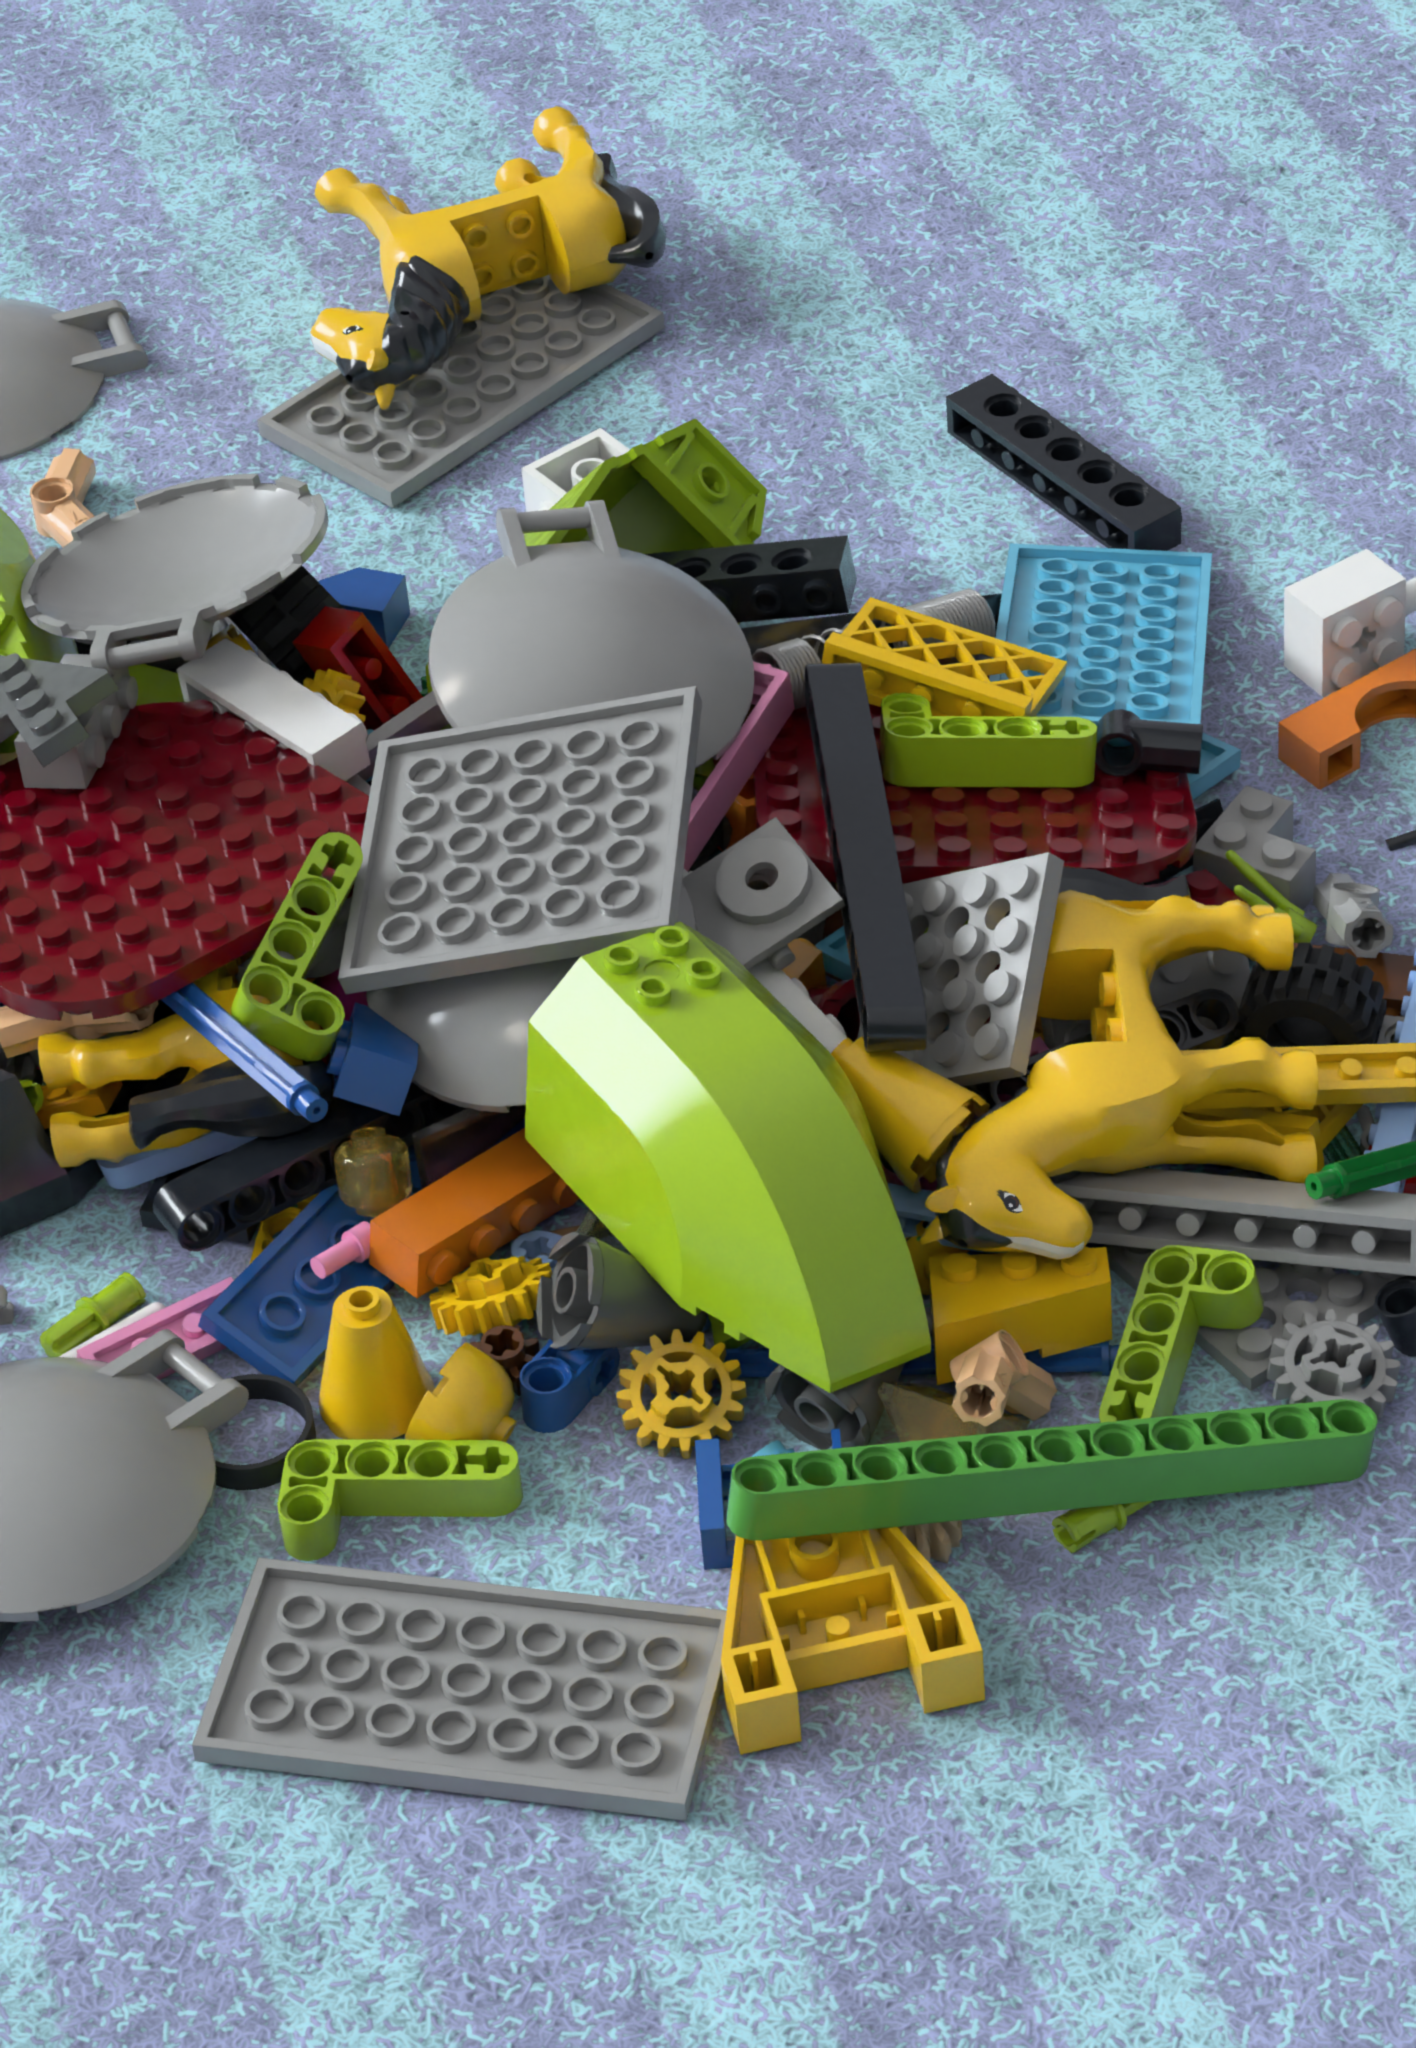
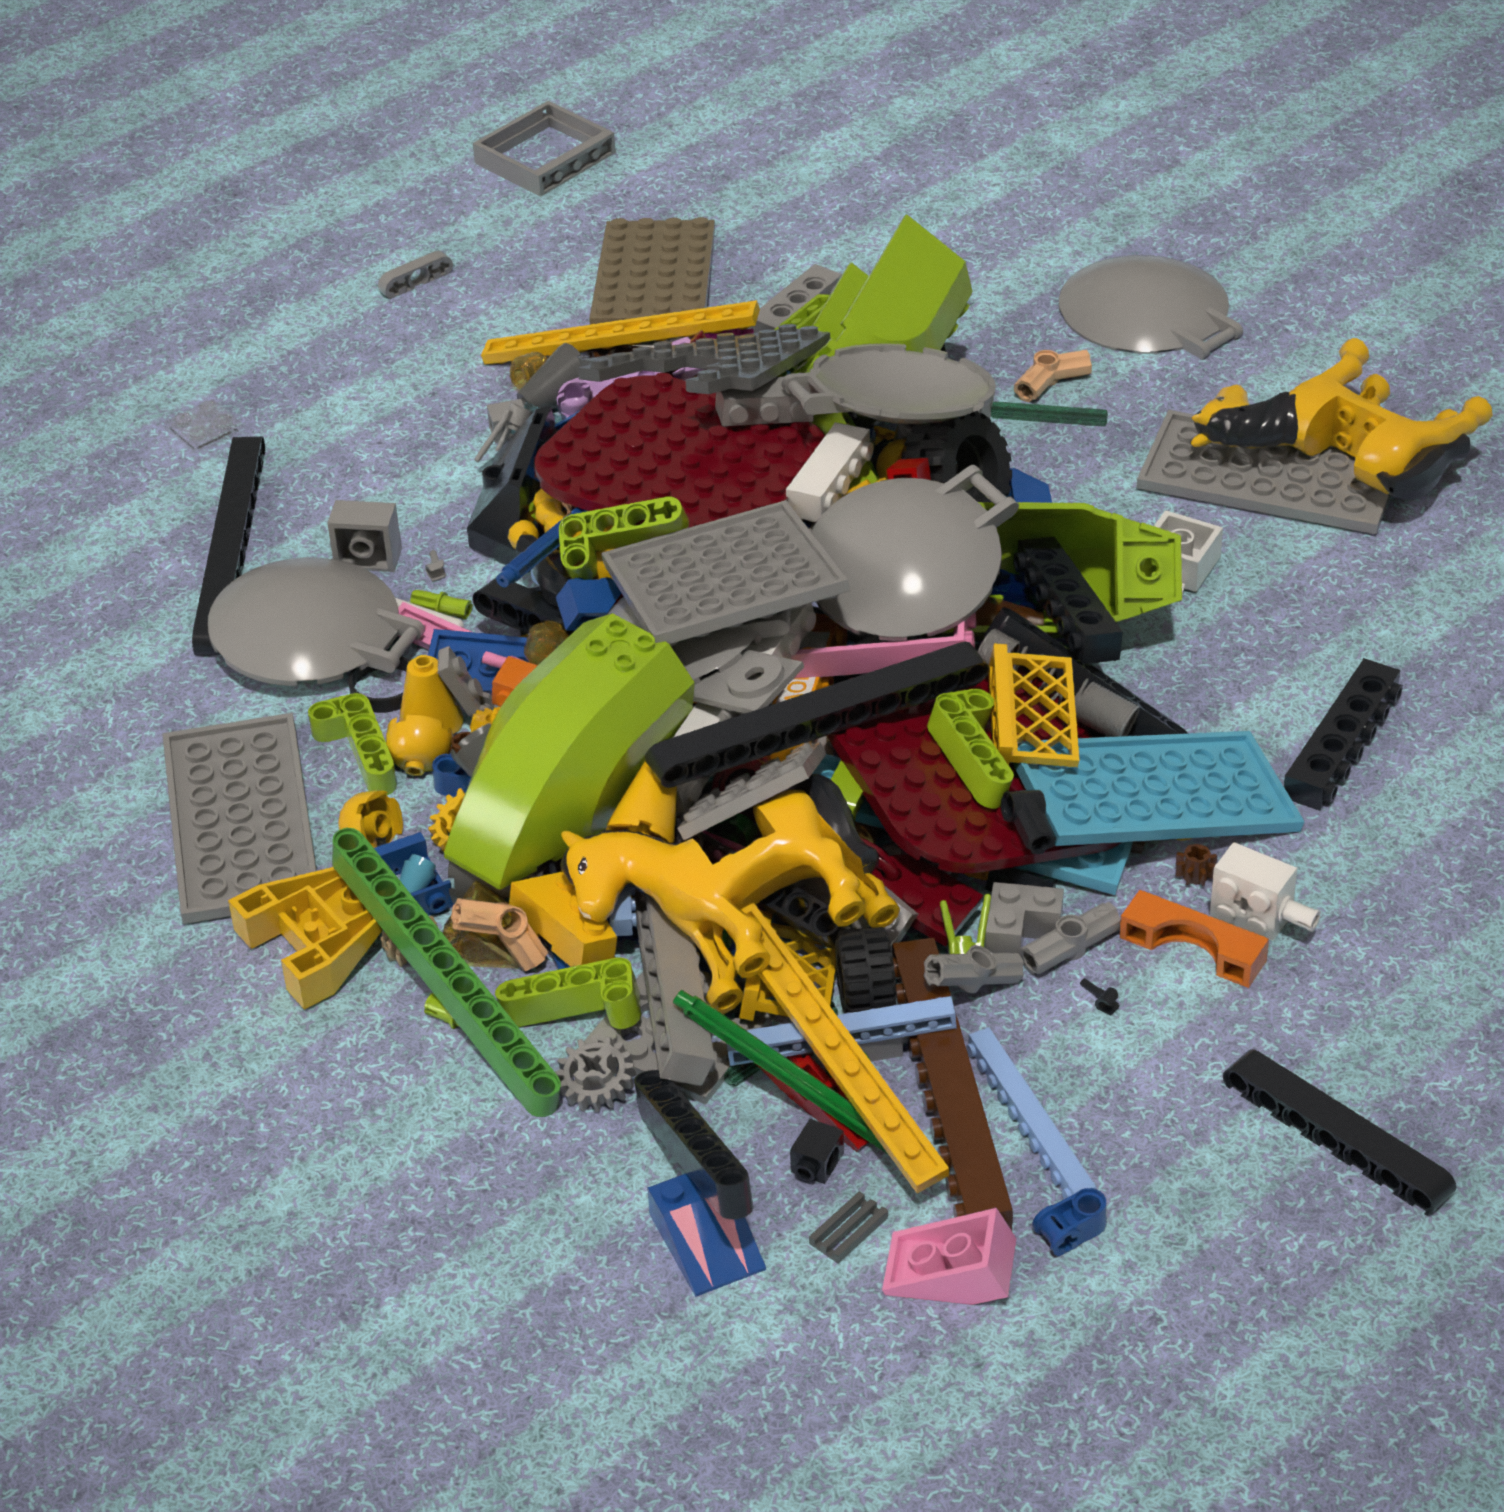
camera: 65 degrees right, 0 degrees up
(387, 1277) = (461, 684): none -> light grey hinge
(616, 1513) = (372, 815): none -> yellow cylinder
(1238, 669) = (1195, 864): none -> reddish brown gear
(1316, 817) = (1070, 938): none -> light grey piece

